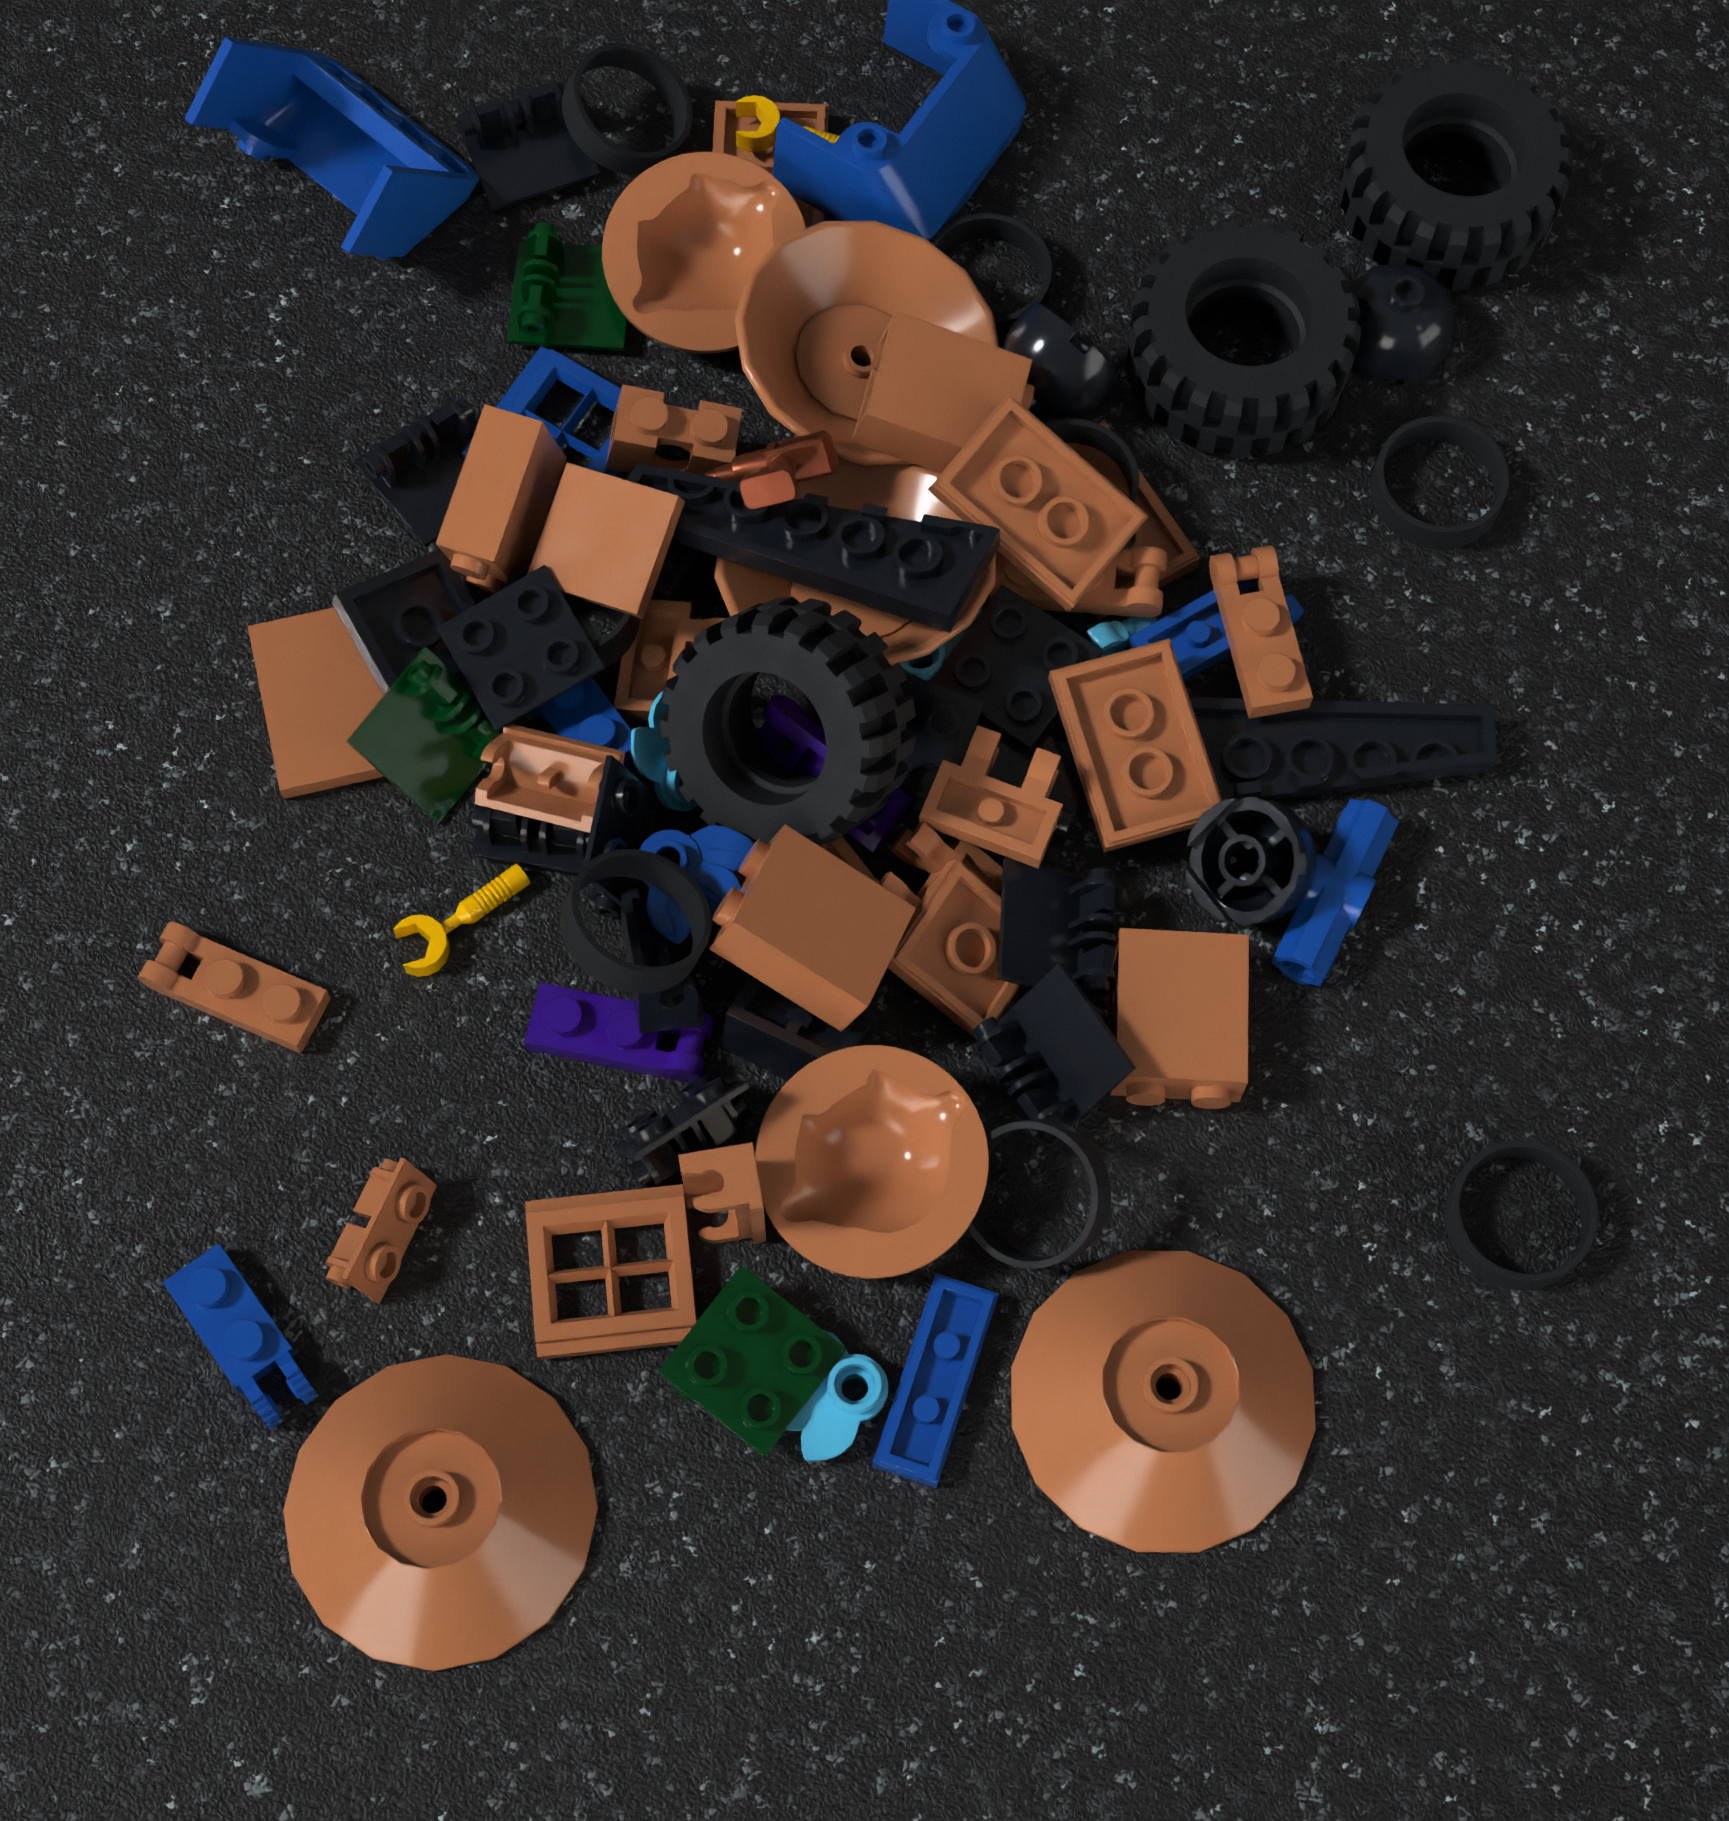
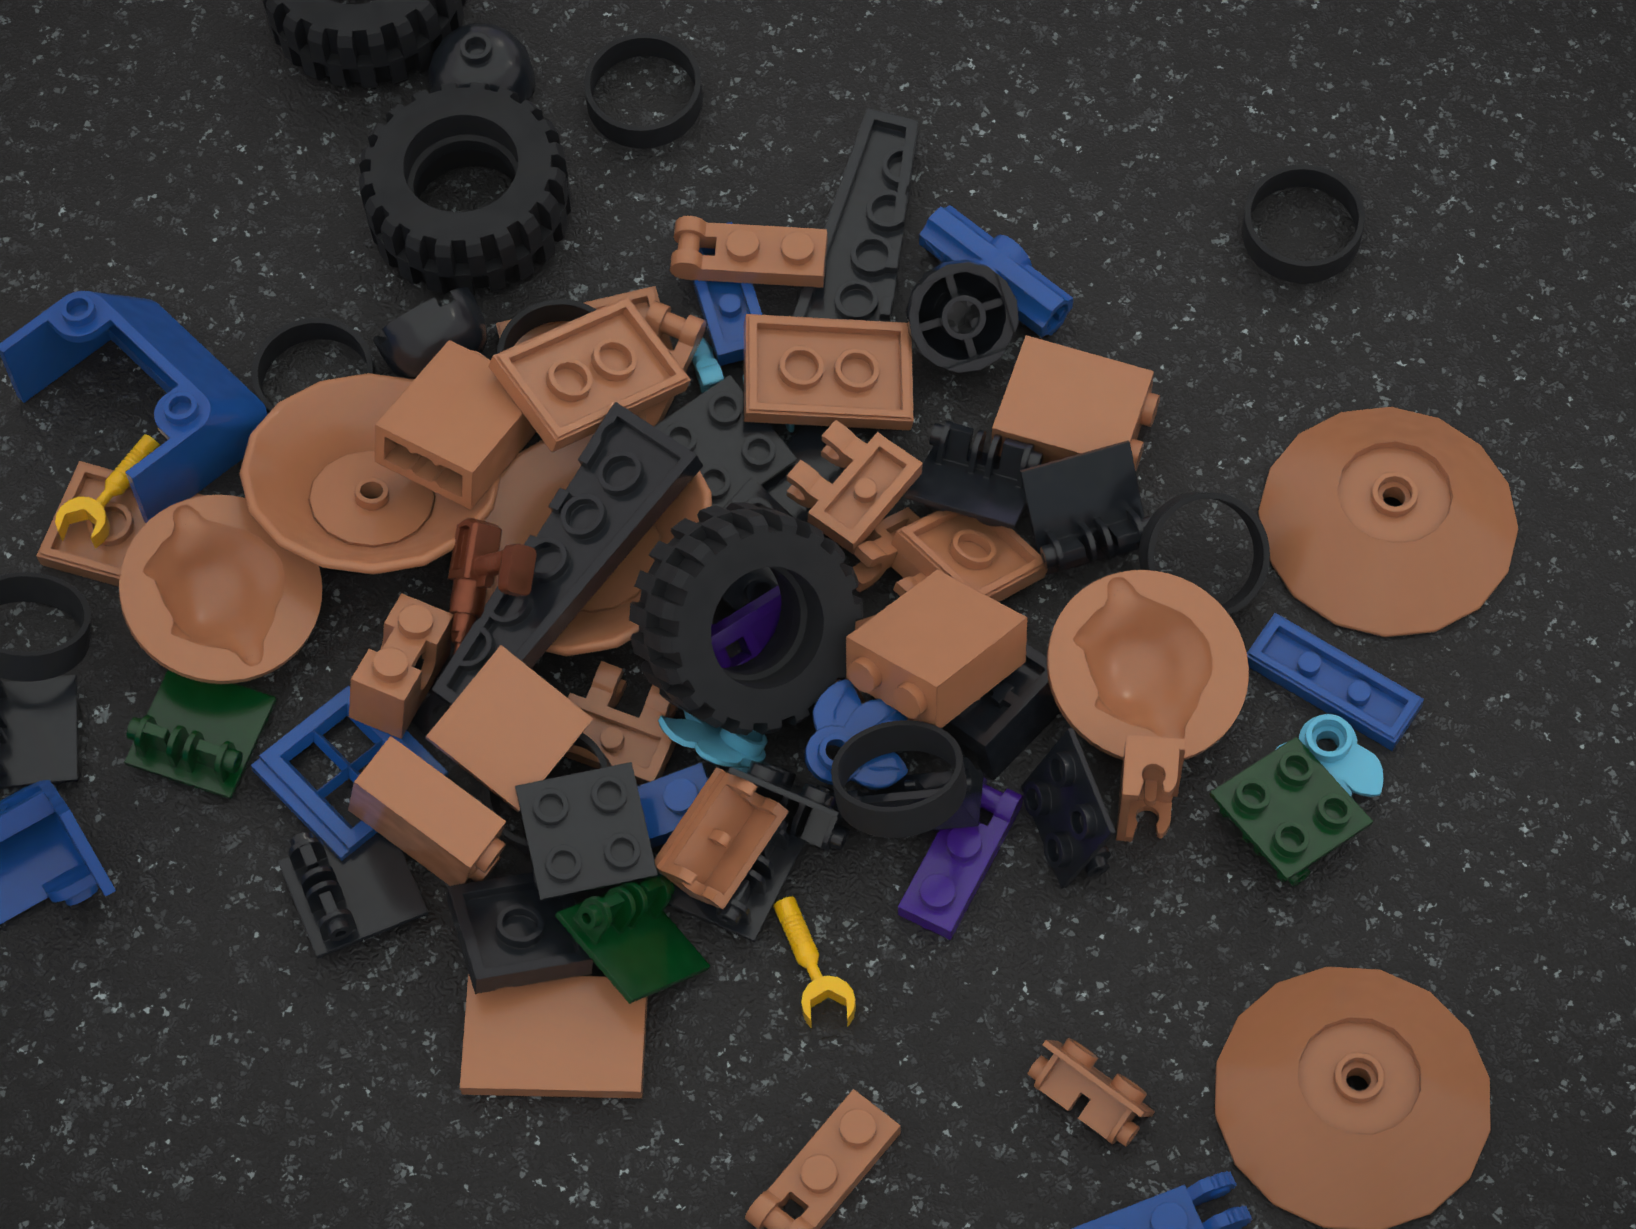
camera: 70 degrees left, 5 degrees down
(616, 1329) = (1229, 918): nougat piece -> none

